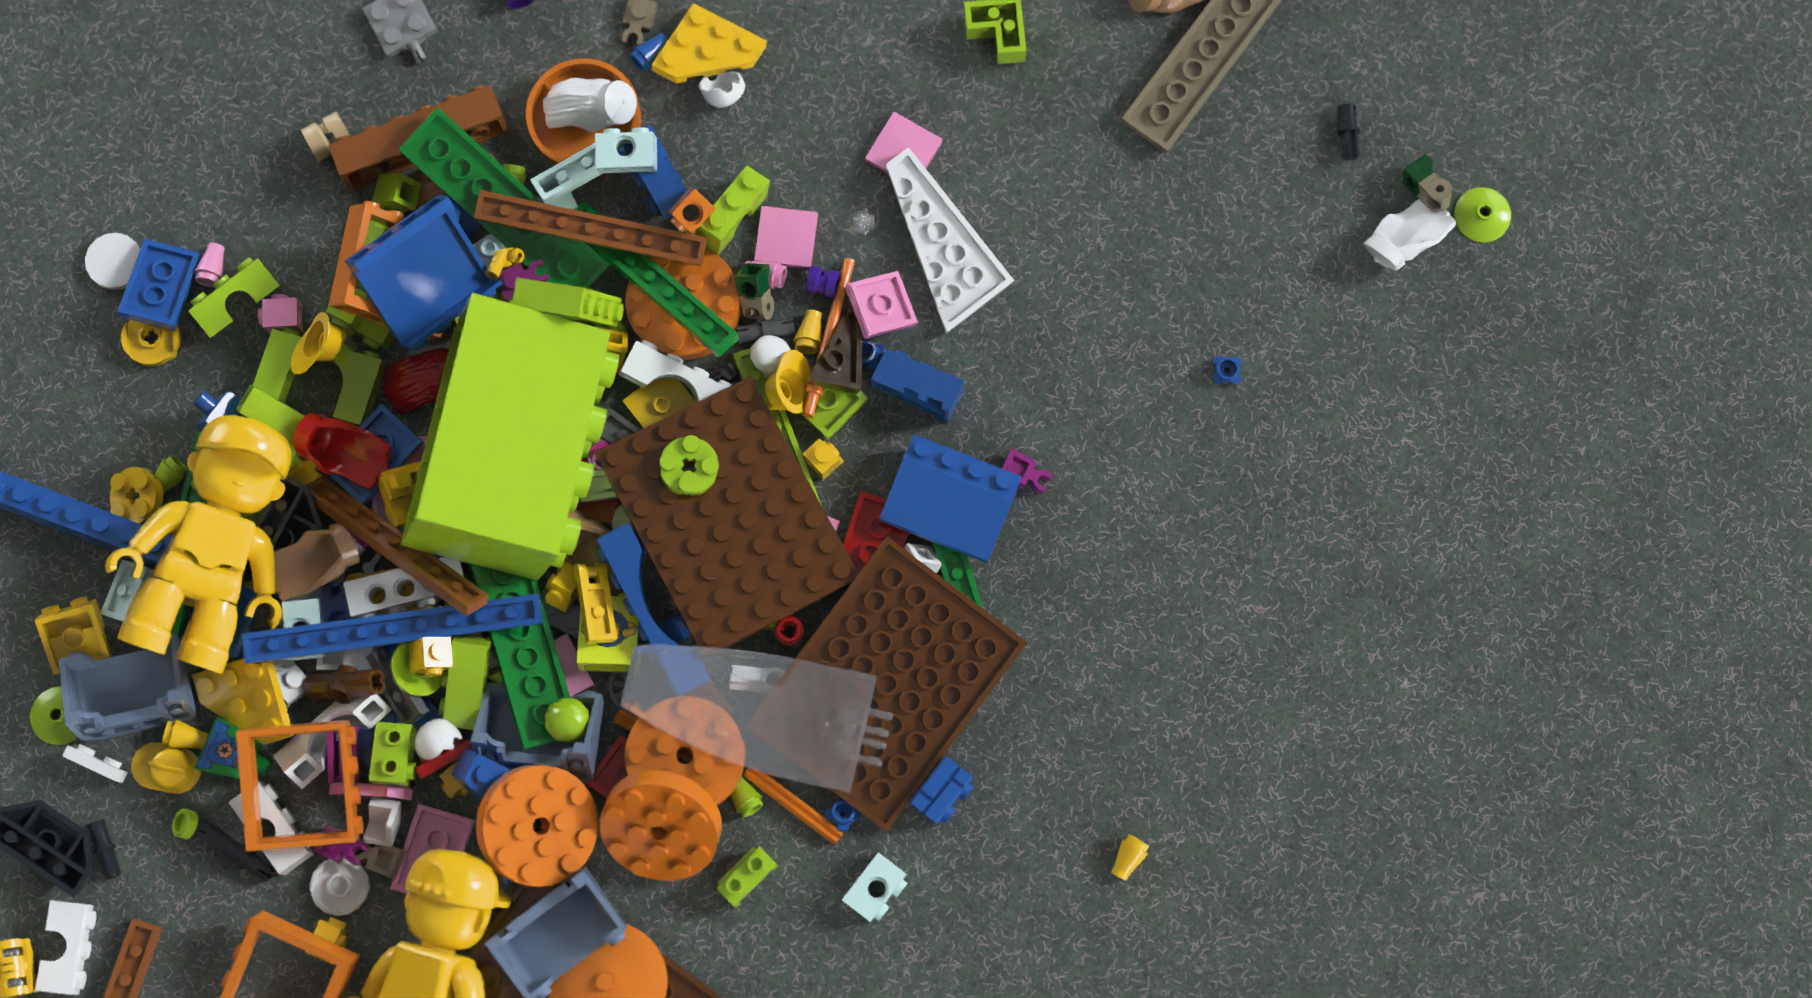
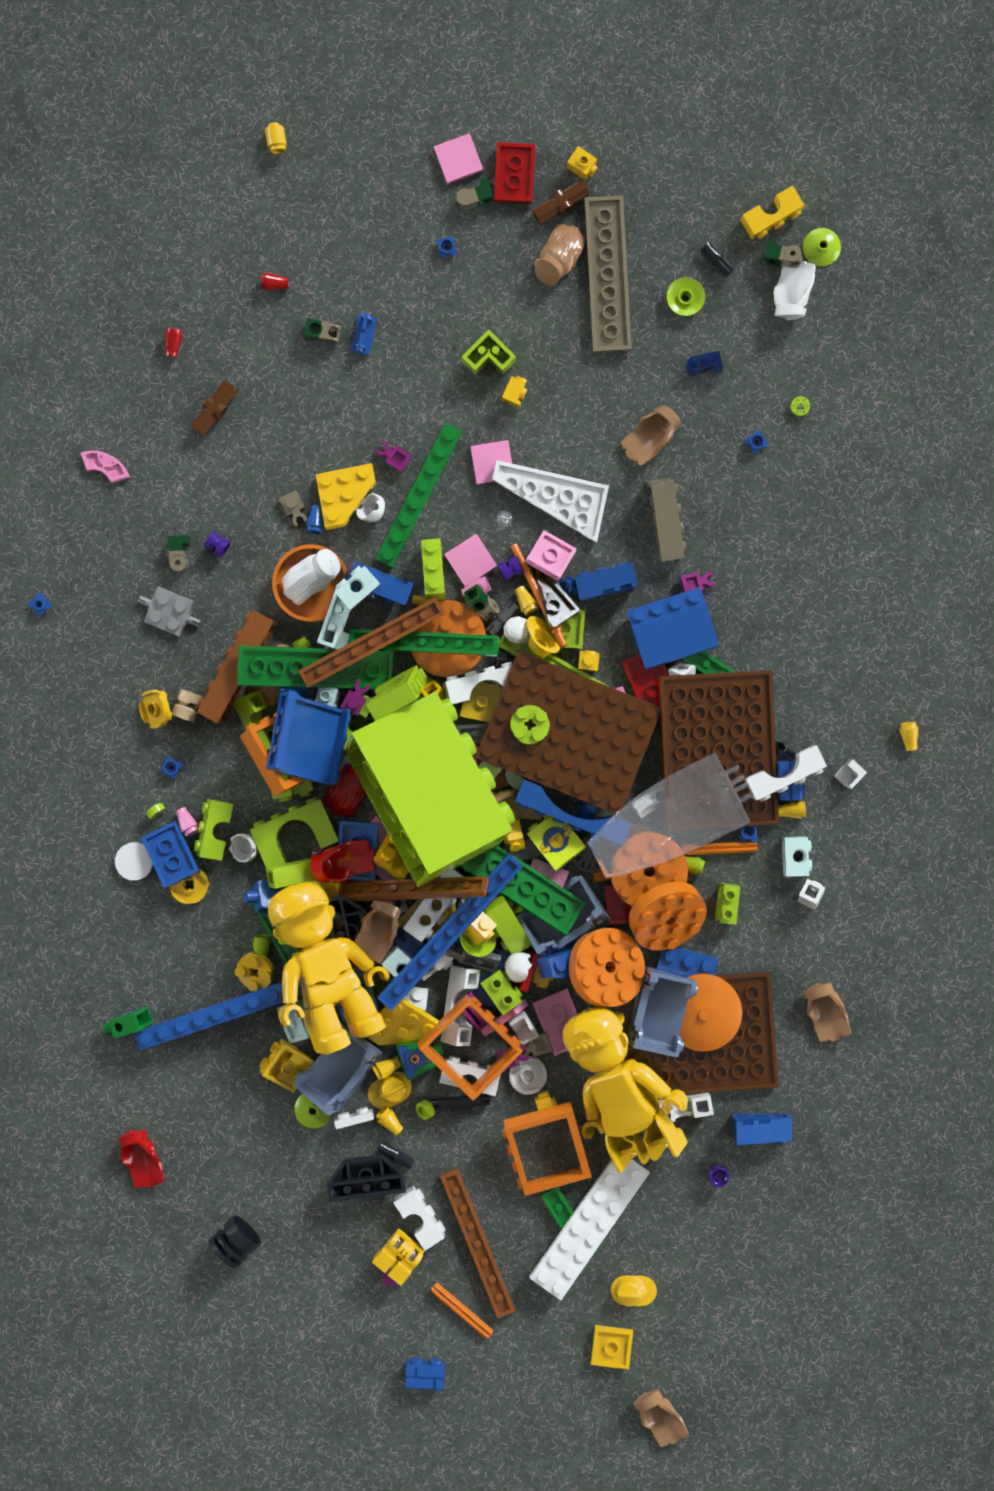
camera: 40 degrees left, 10 degrees up
(133, 800) = (389, 1120): none -> yellow cone
(188, 224) = (155, 811): none -> lime tile
(244, 185) = (177, 765): none -> blue plate
(247, 345) = (243, 847): none -> white hair
(281, 313) = (245, 817): bright pink brick -> none
(288, 110) = (162, 713): none -> yellow plate
(319, 343) = (281, 819): yellow piece -> none
(344, 684) = (447, 977): reddish brown piece -> none
(502, 259) = (338, 696): yellow arm -> none
(567, 720) = (575, 902): lime hair -> none
(595, 603) = (539, 832): yellow plate -> none
(640, 907) = (686, 962): none -> blue wing
(703, 207) = (410, 585): orange brick -> none
(789, 119) = (419, 495): none -> green plate
(789, 623) = (652, 767): red cone -> none
(799, 56) = (396, 458): none -> magenta plate
(854, 947) = (811, 894): none -> white brick
(903, 764) = (807, 762): none -> white arch
(918, 831) = (793, 810): none -> yellow cone
(966, 749) = (783, 749): none -> black hand
(995, 91) = (514, 391): none -> yellow brick
(1020, 844) = (850, 774): none -> white panel
(1047, 371) = (666, 519): none -> dark tan wedge
(1109, 263) = (651, 435): none -> medium nougat hair
(1238, 232) = (704, 363): none -> clear blue leg
(1281, 130) = (690, 288): none -> lime dish
(1311, 371) = (800, 406): none -> lime tile
(1430, 131) = (758, 222): none -> yellow arch

